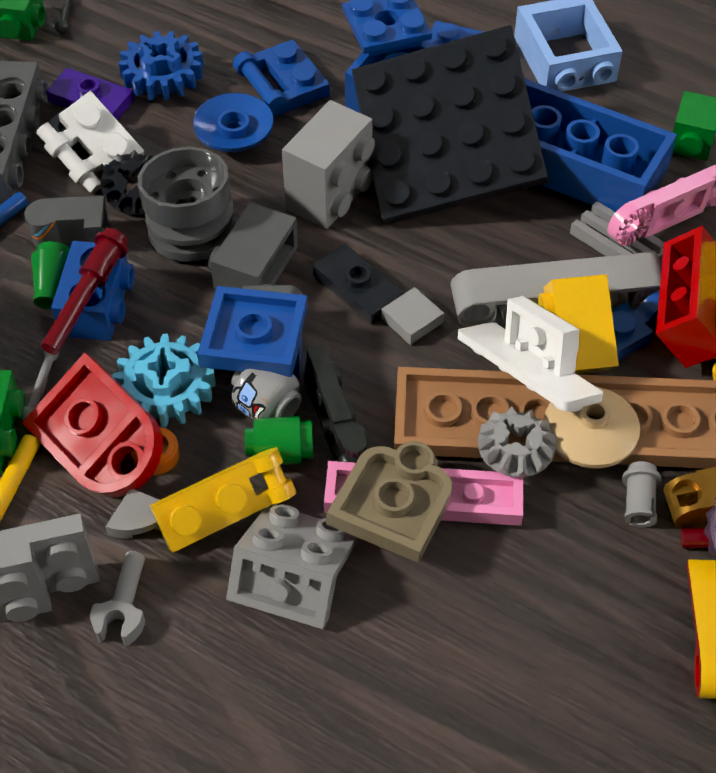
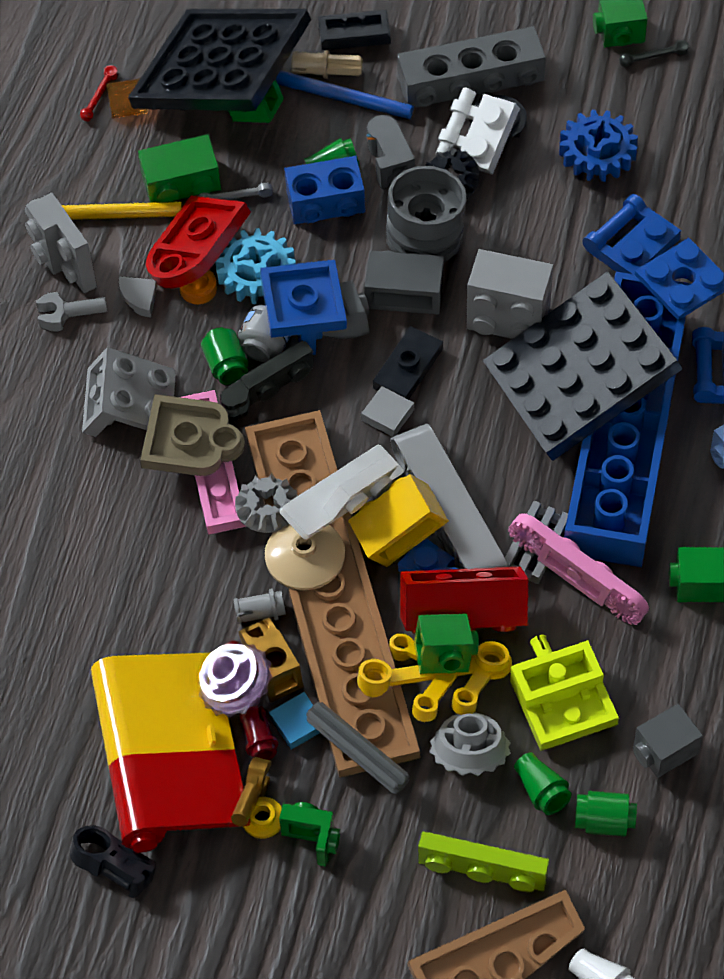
camera: 75 degrees right, 5 degrees up
(73, 85) = (546, 111): dark purple plate -> none
(108, 249) = (319, 179): dark red pin -> none
(221, 500) = (159, 335): yellow plate -> none
(233, 122) = (548, 208): blue dish -> none

